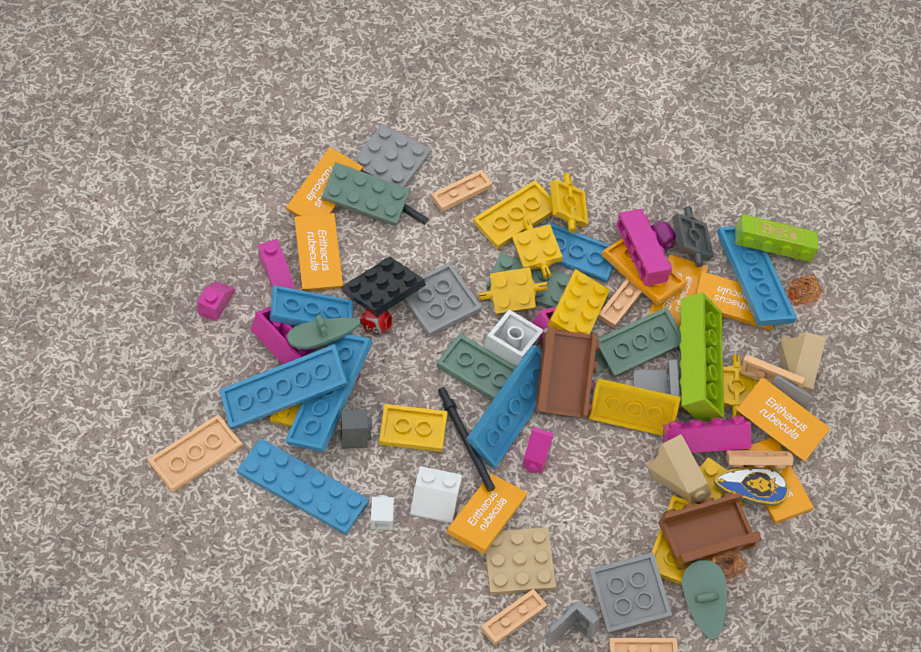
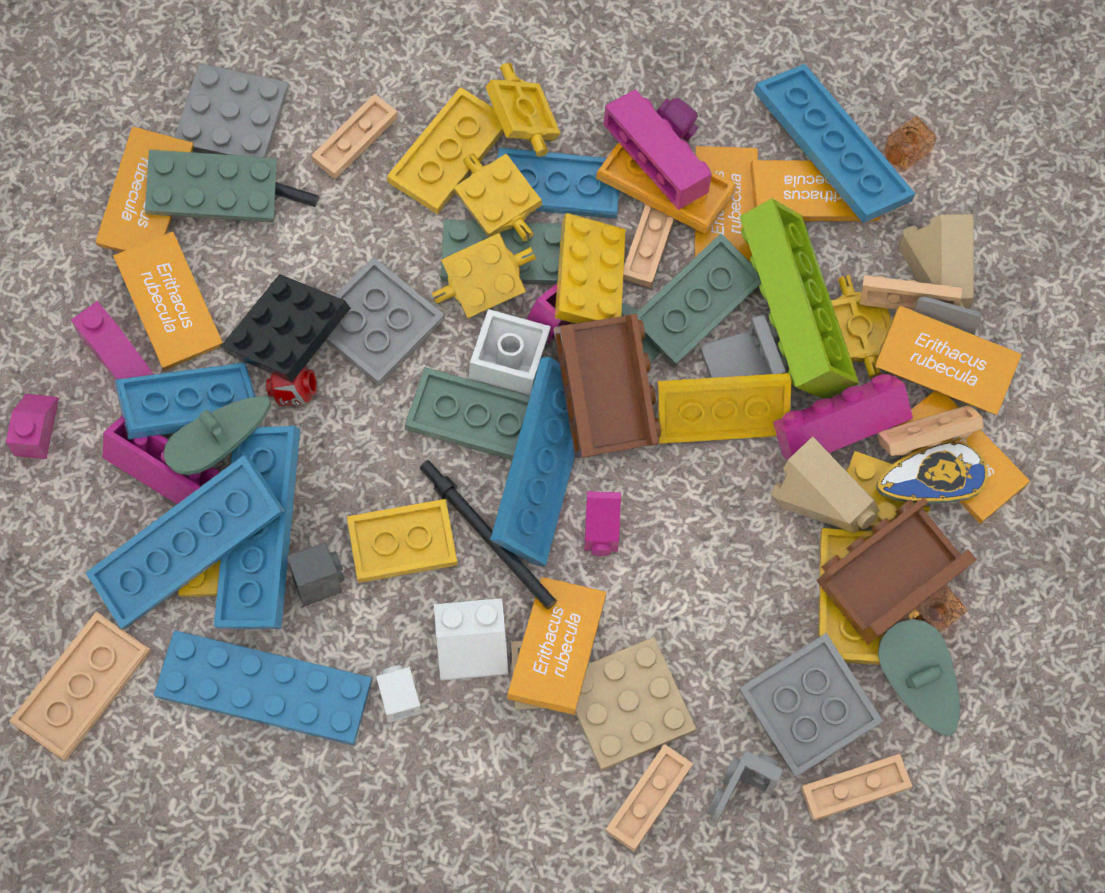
camera: 15 degrees left, 10 degrees up
(692, 236) = (722, 109): dark grey plate -> none
(776, 238) = (845, 75): lime brick -> none

